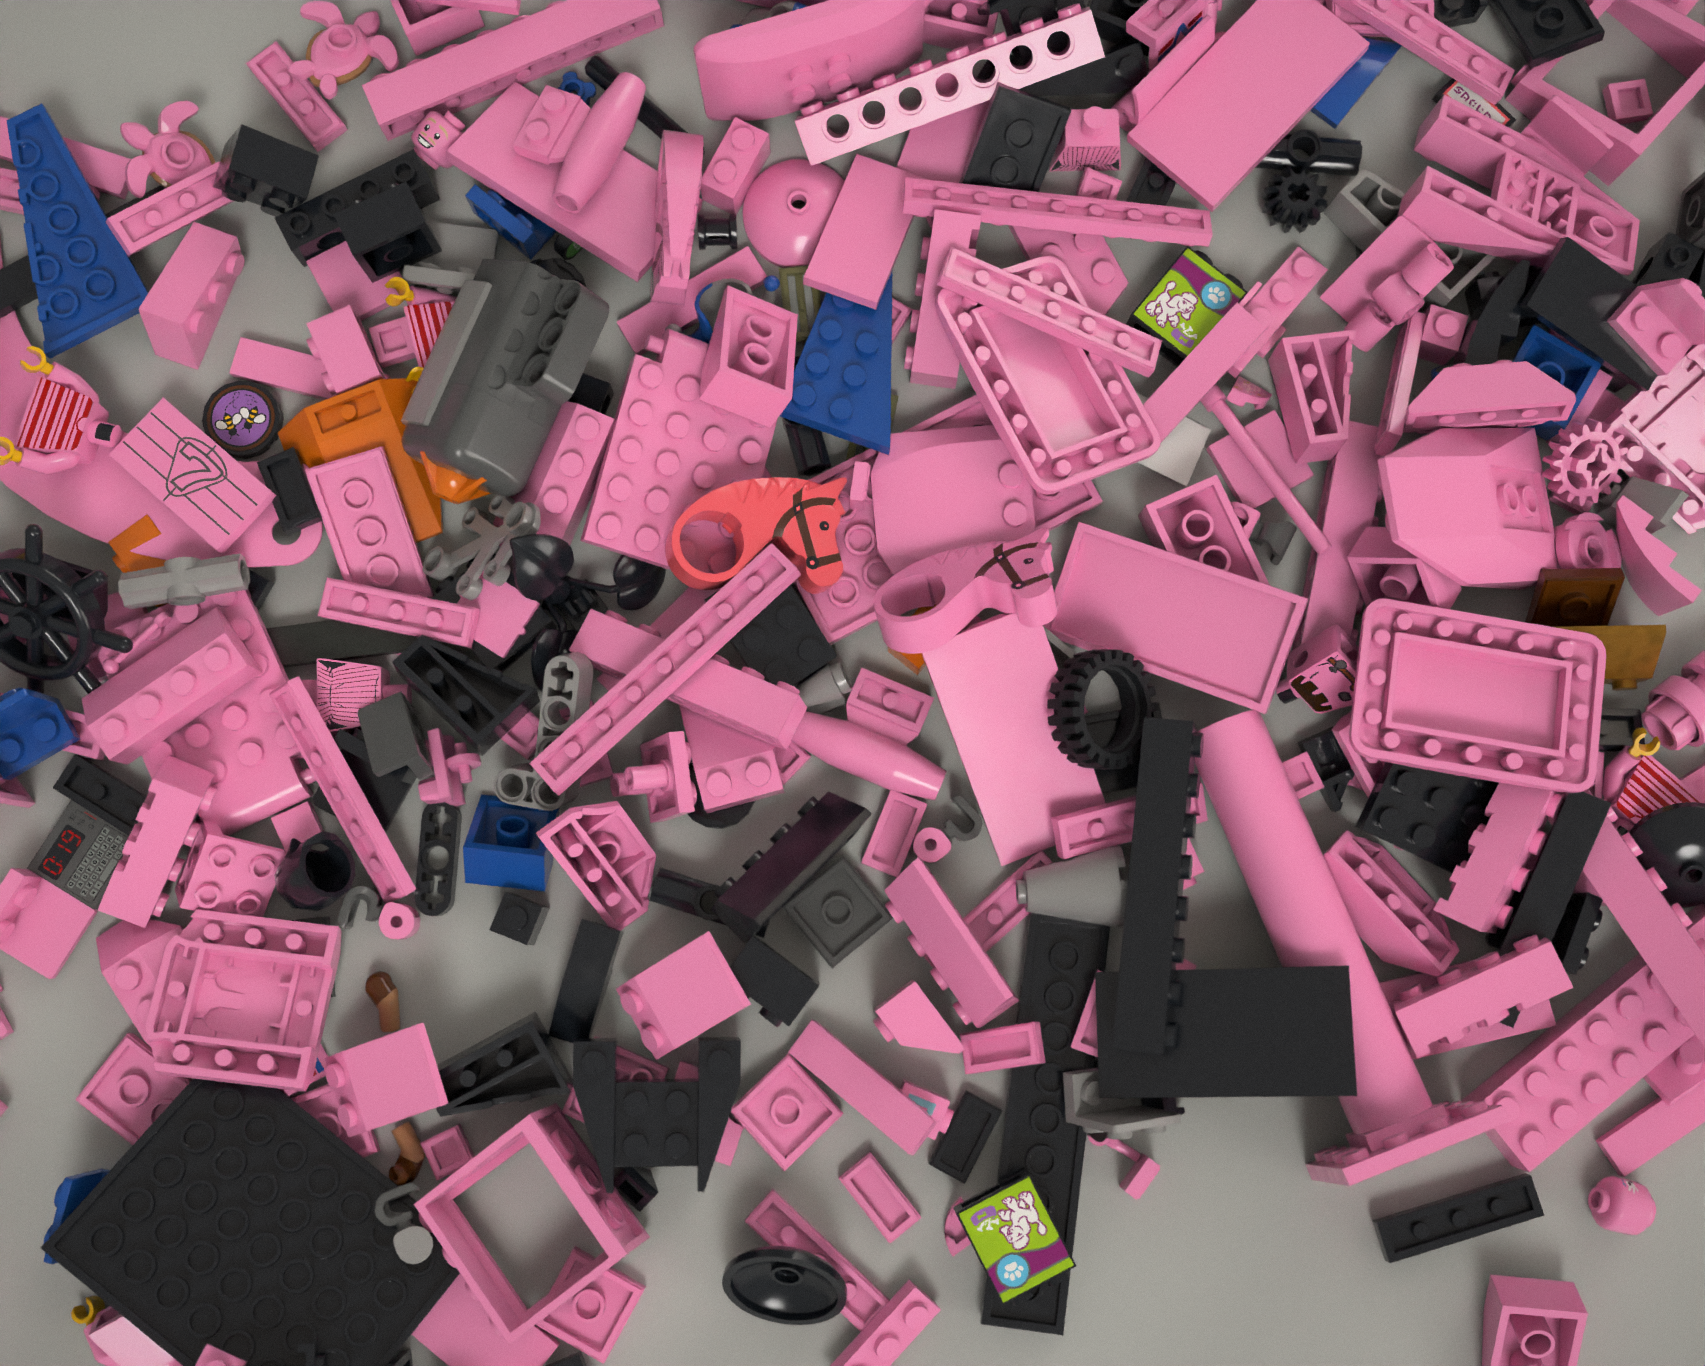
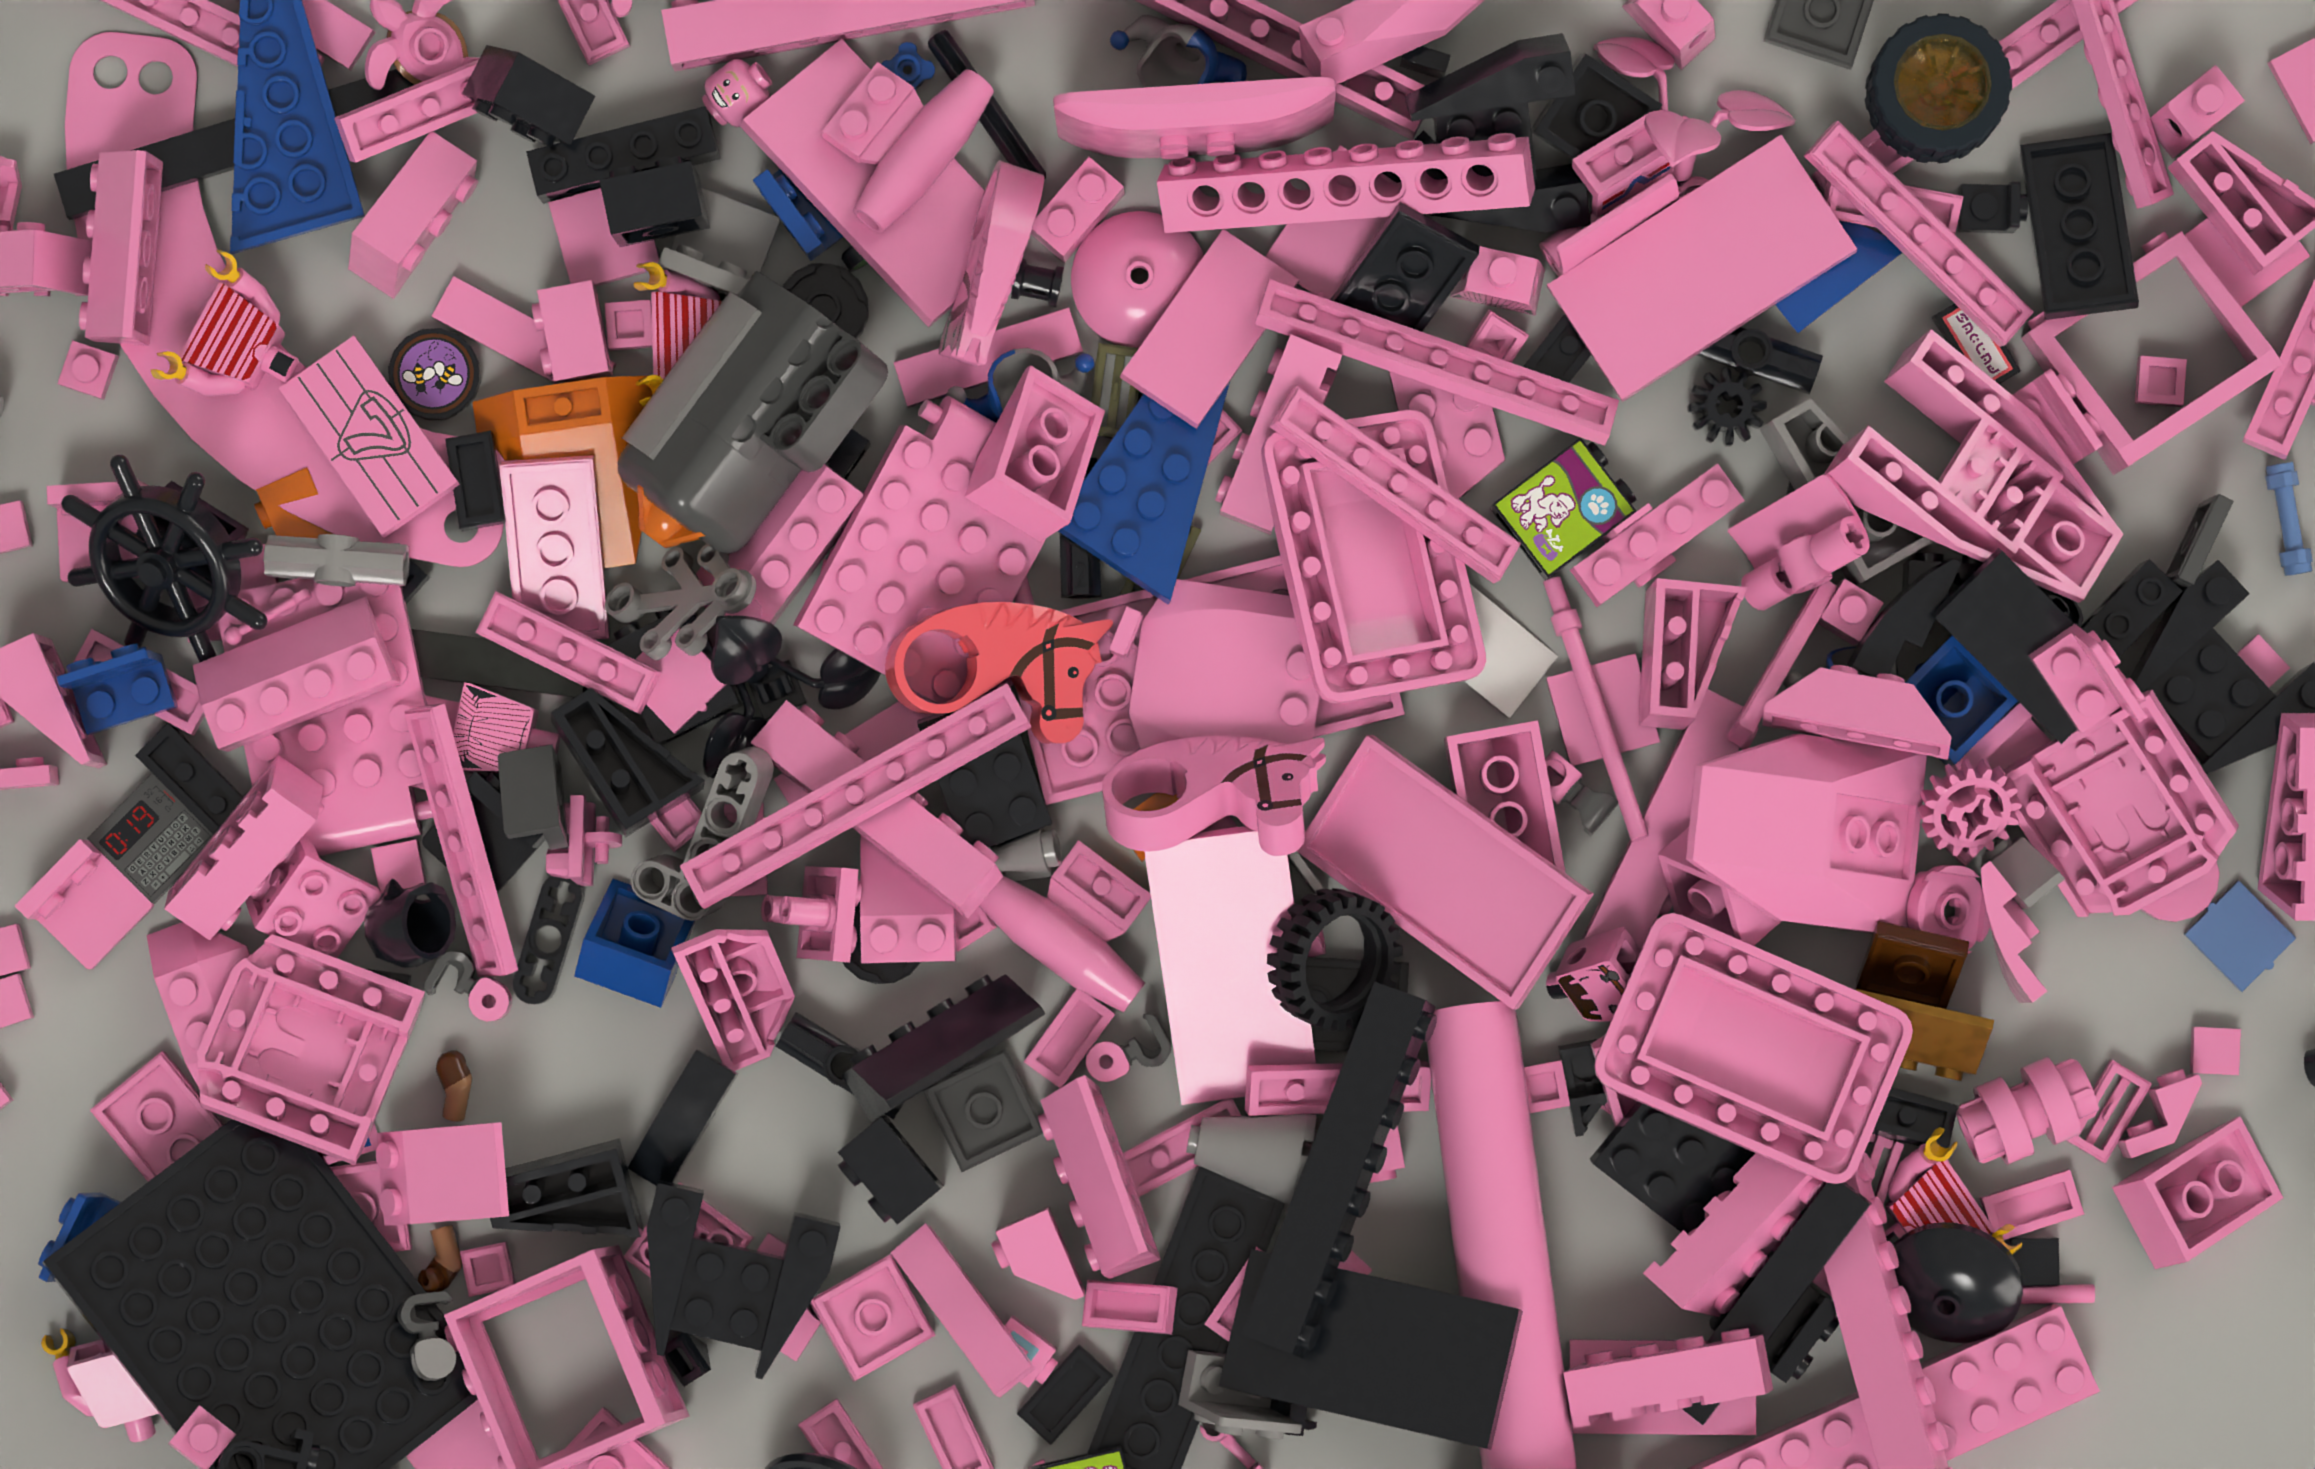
camera: 20 degrees right, 5 degrees up
(519, 918) = (625, 1031): black brick -> none
(682, 996) = (787, 1163): bright pink slope -> none
(1202, 369) = (1554, 593): bright pink tile -> none
(1245, 391) = (1609, 626): bright pink tile -> none
(1389, 906) = (1602, 1253): bright pink wedge -> none

